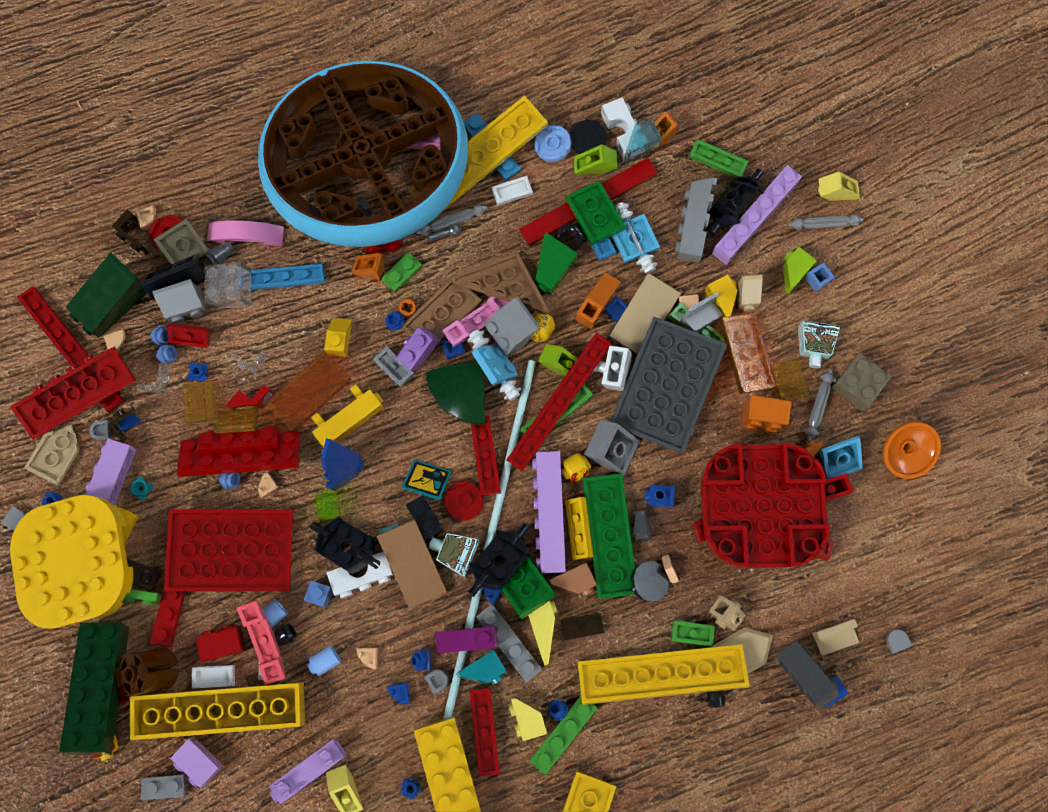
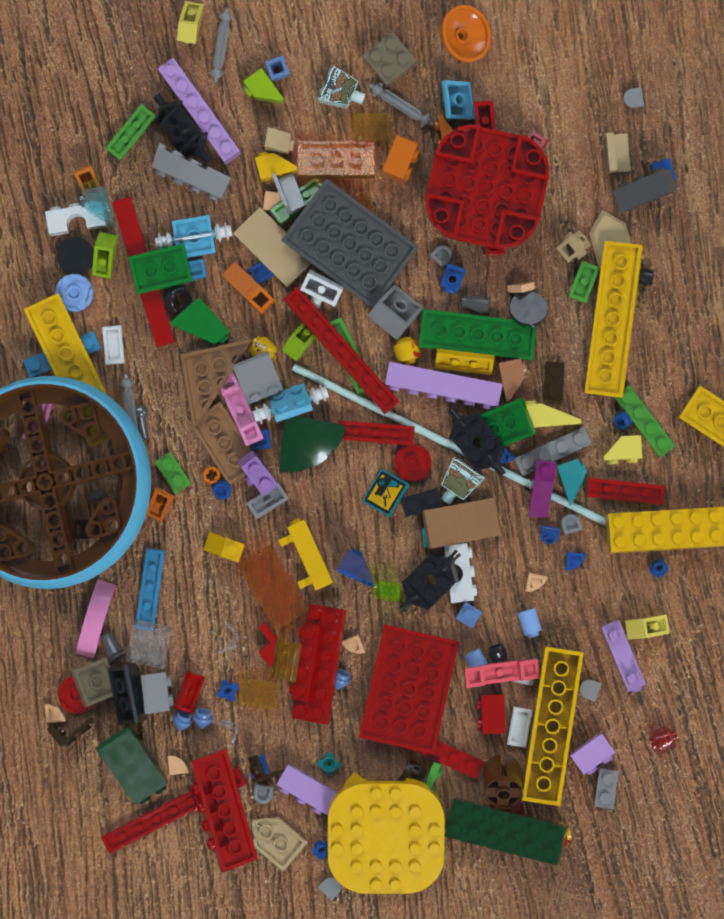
camera: 75 degrees left, 10 degrees up
(266, 743) = (589, 689): none -> light grey tile
(681, 480) = (441, 255): none -> light grey tile

